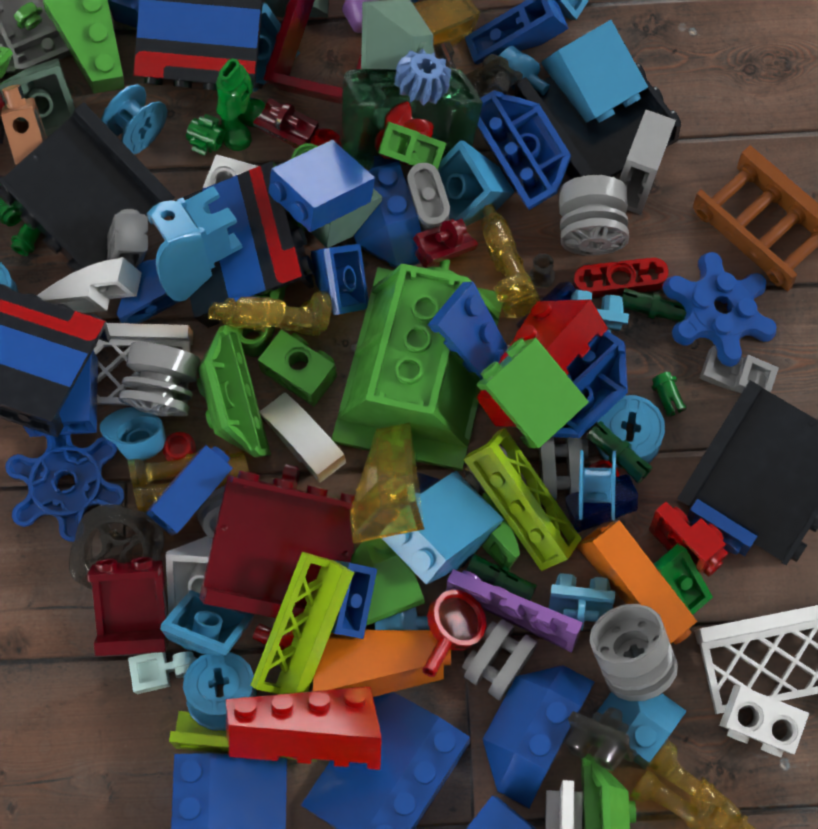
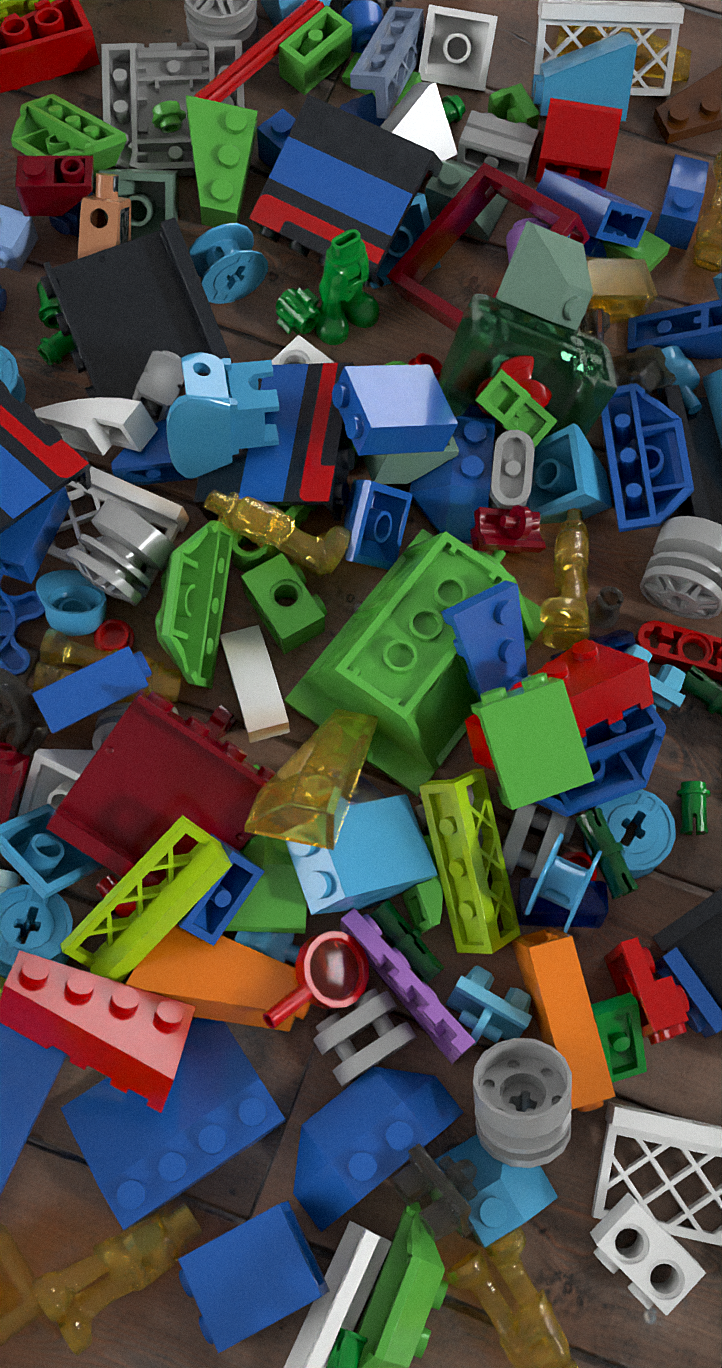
camera: 15 degrees right, 0 degrees up
(285, 123) = (390, 332): dark red hips -> none
(422, 77) = (560, 332): medium blue gear -> none

